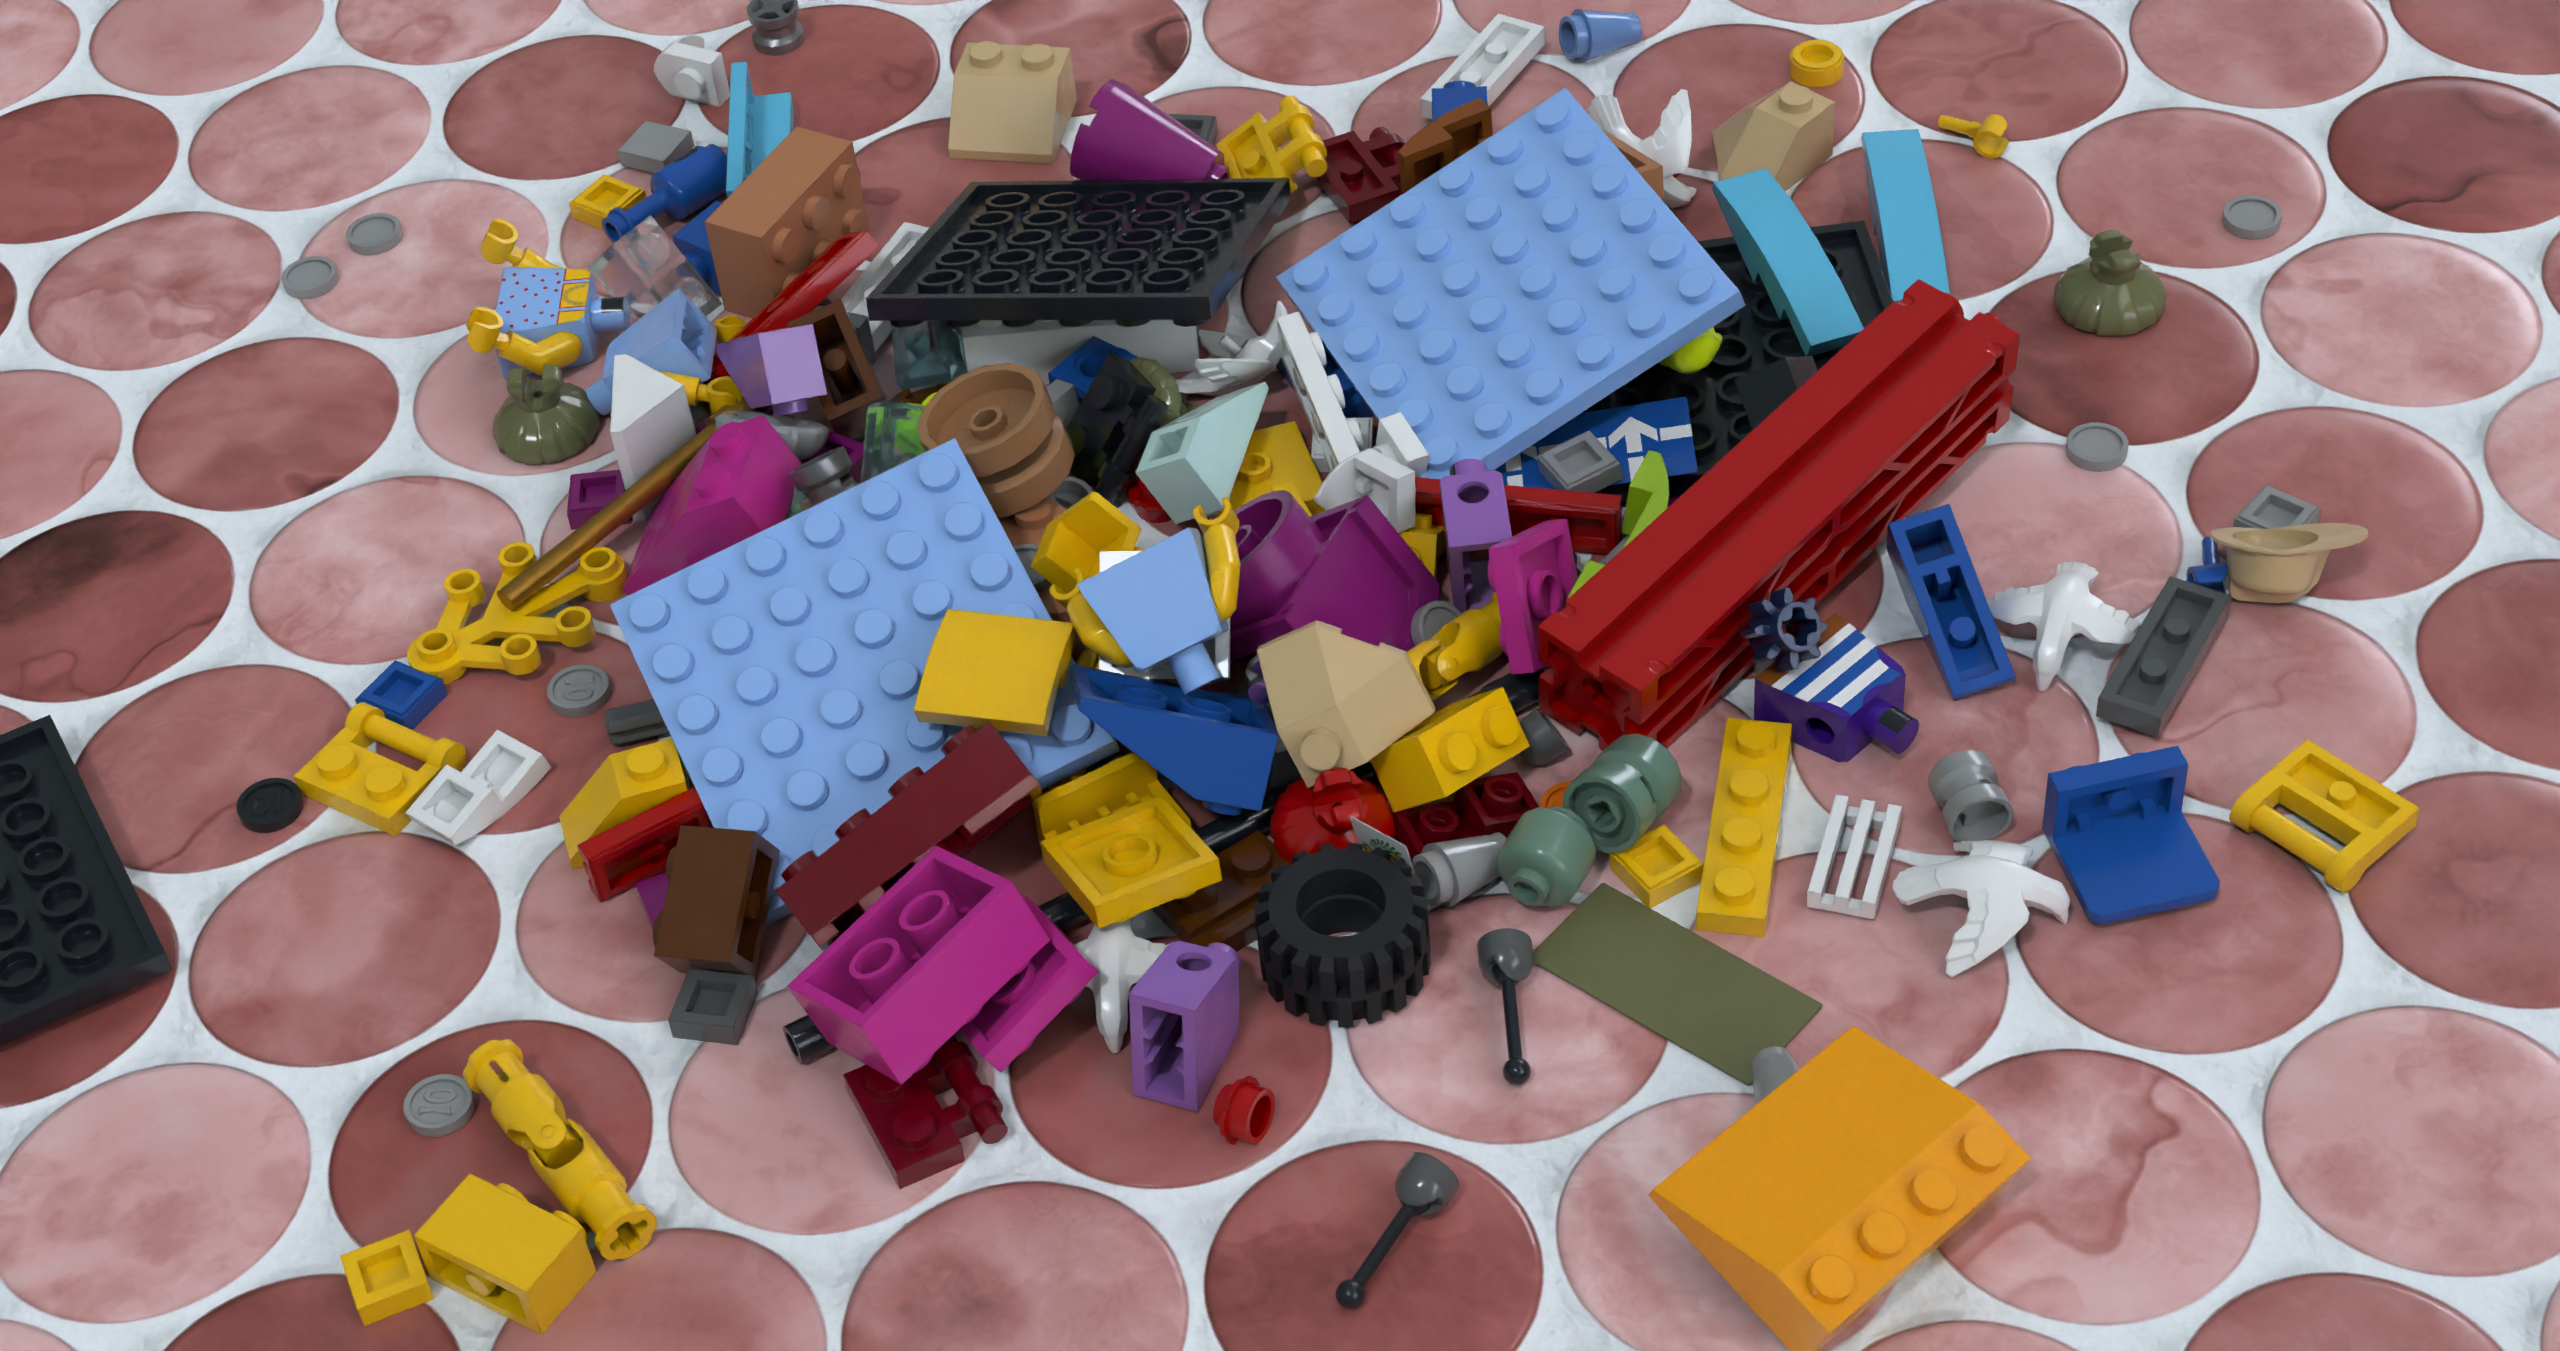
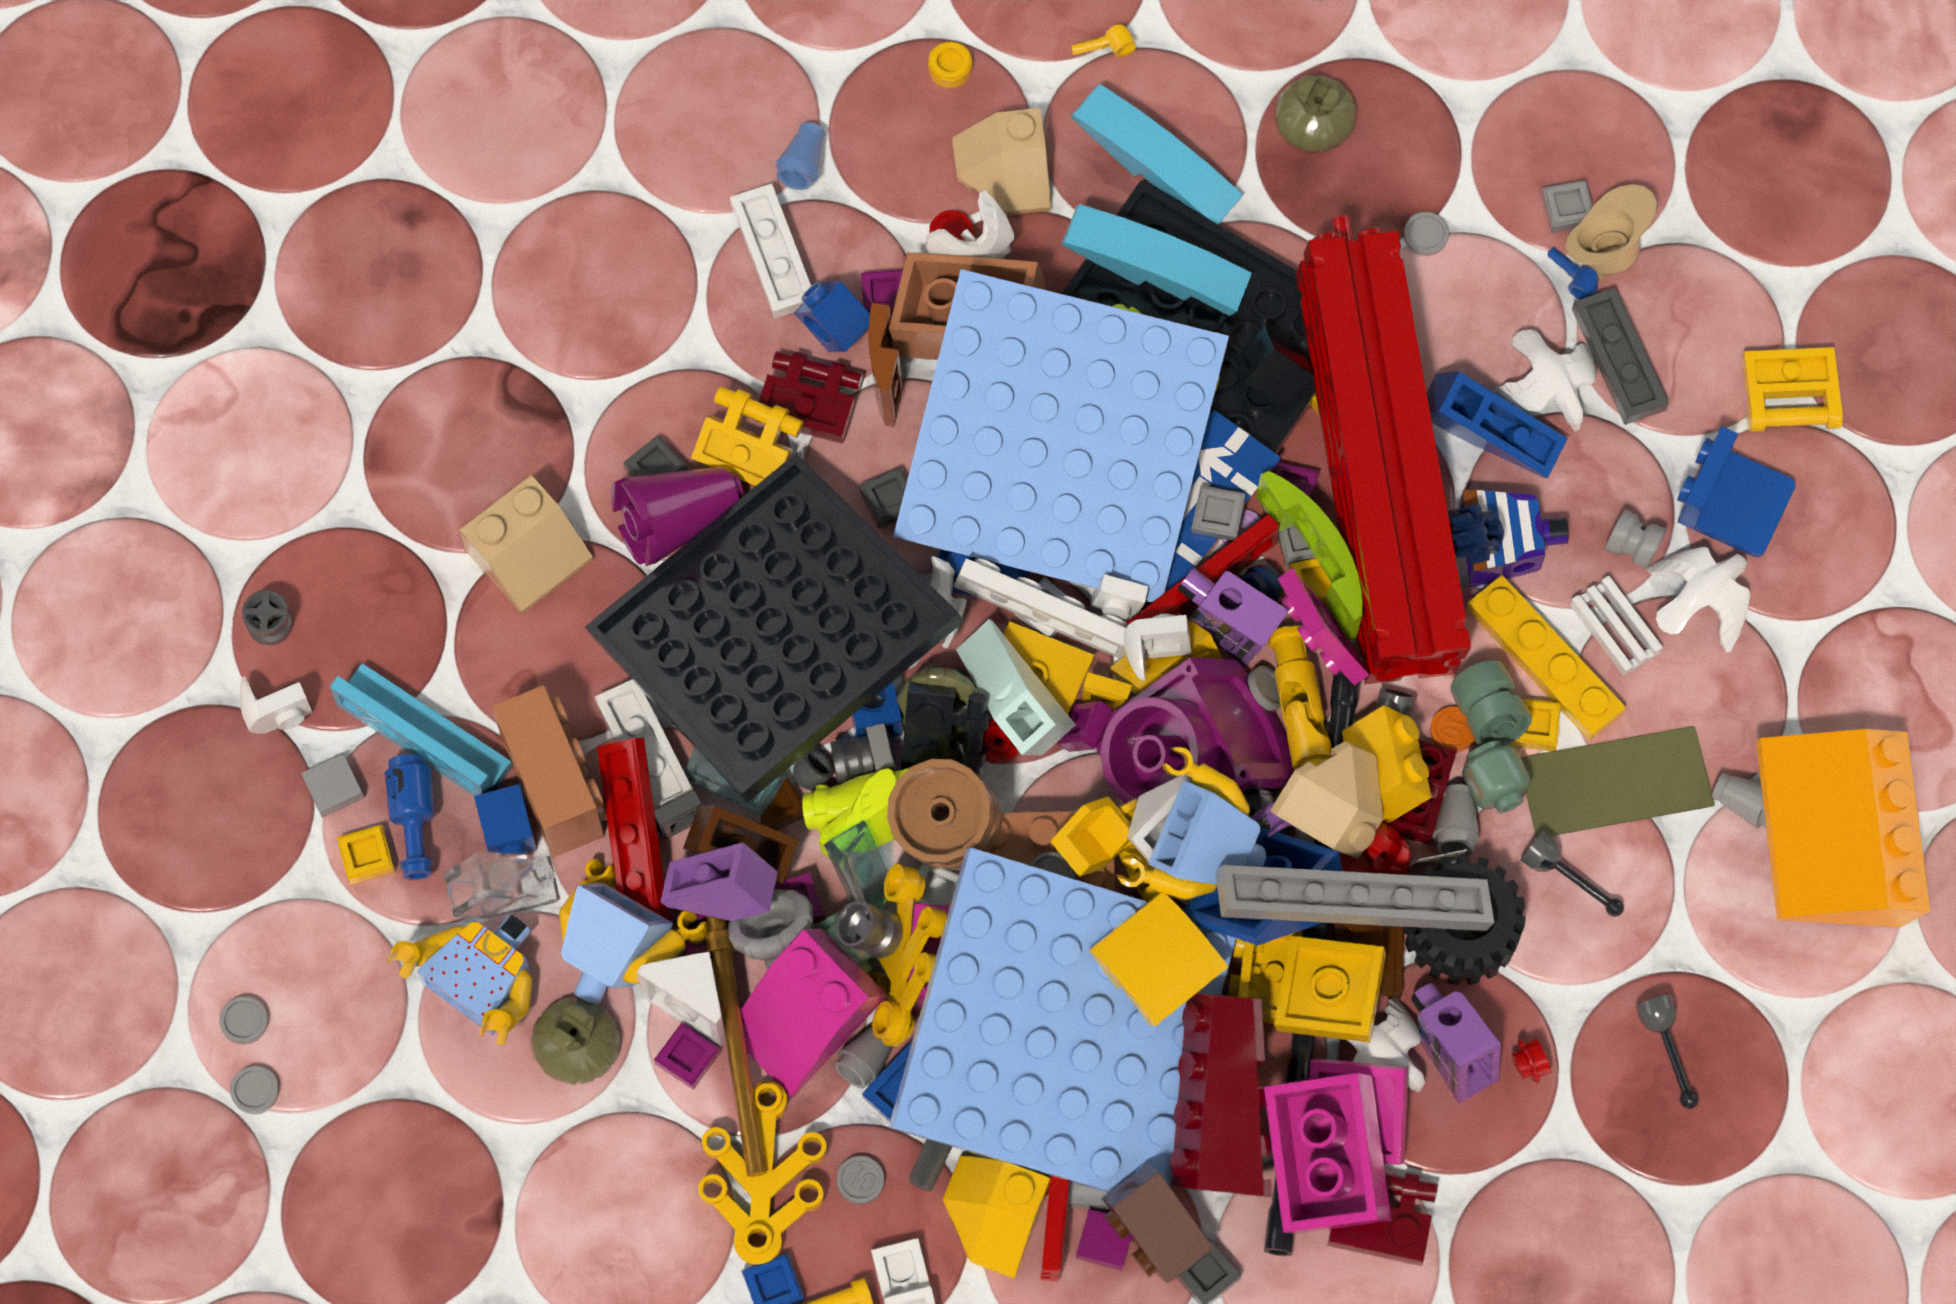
camera: 55 degrees left, 25 degrees up
(1228, 763) = (1354, 898): none -> light grey plate

